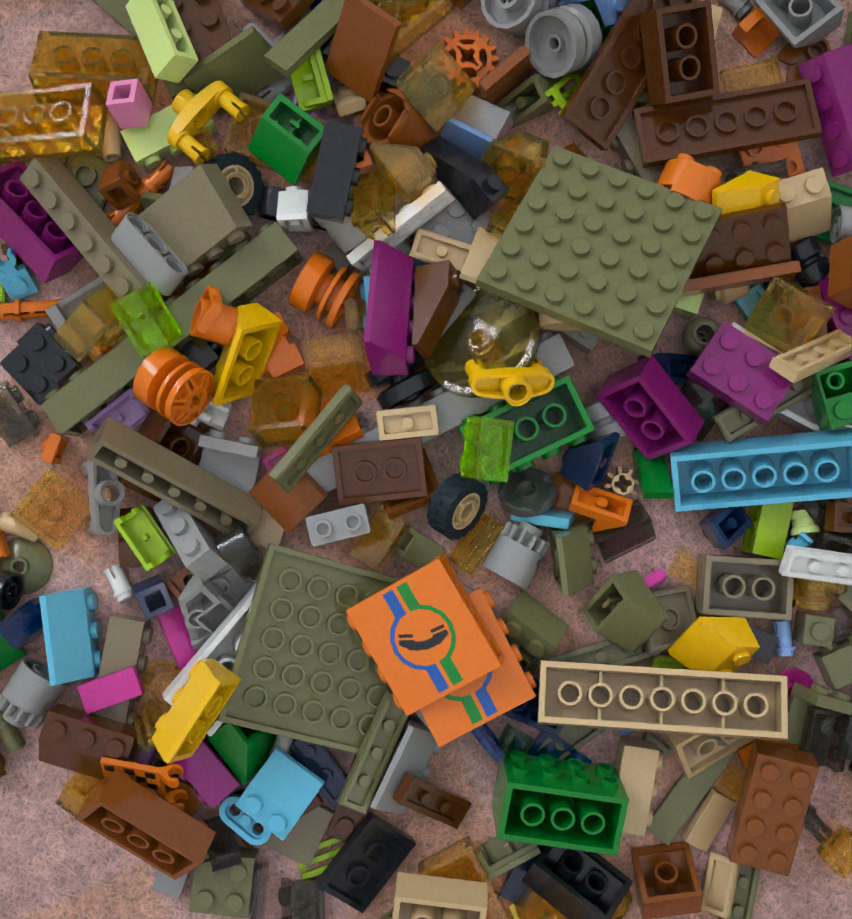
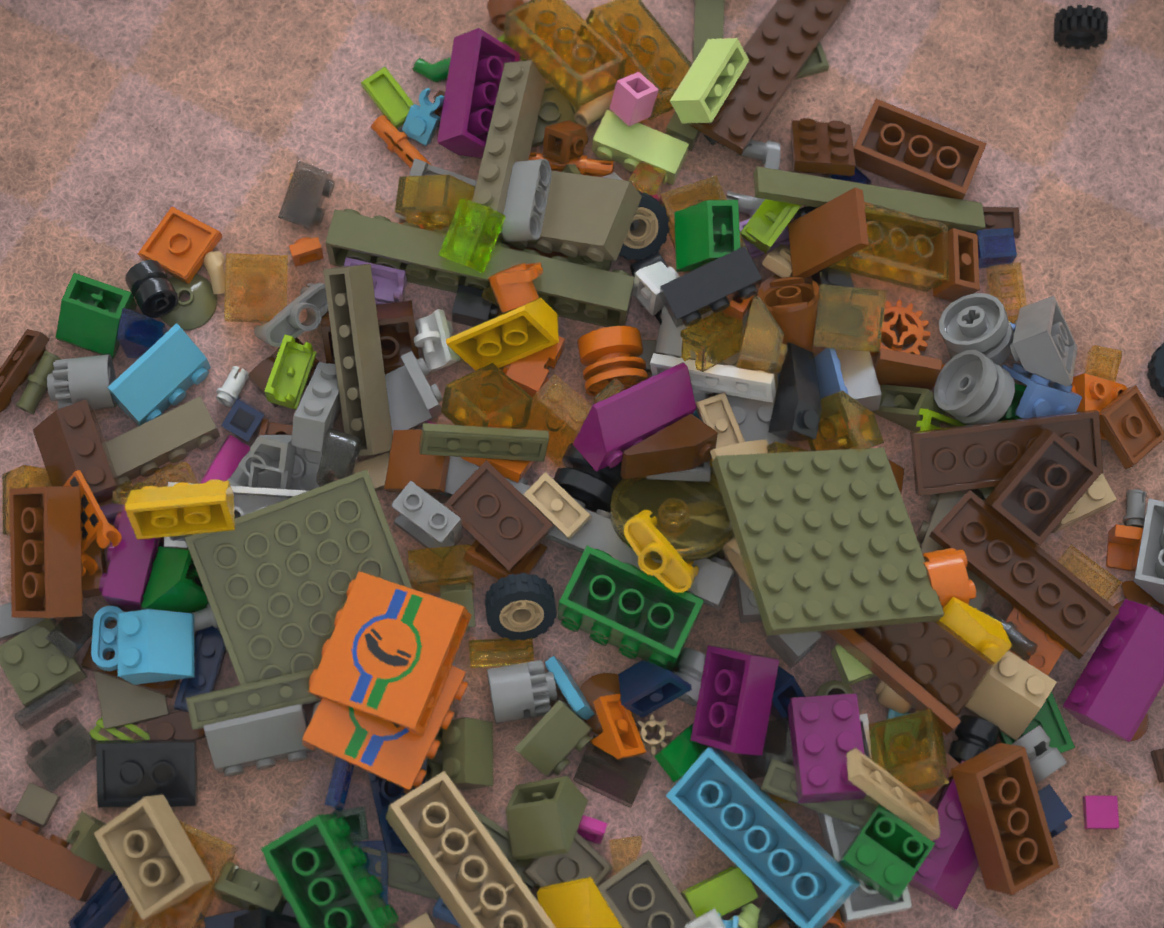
camera: 50 degrees right, 15 degrees down
(40, 362) = (368, 187): black plate -> none
(110, 689) = (138, 442): dark pink tile -> none
(173, 386) = (435, 298): orange wheel -> none
(196, 111) = (670, 153): yellow connector -> none
(237, 64) = (726, 154): olive tile -> none
(431, 800) = (247, 784): reddish brown plate -> none
(487, 449) = (587, 578): clear neon green bracket -> none
(527, 493) = (579, 659): flat silver tile -> none
(725, 526) = (691, 850): dark blue slope -> none

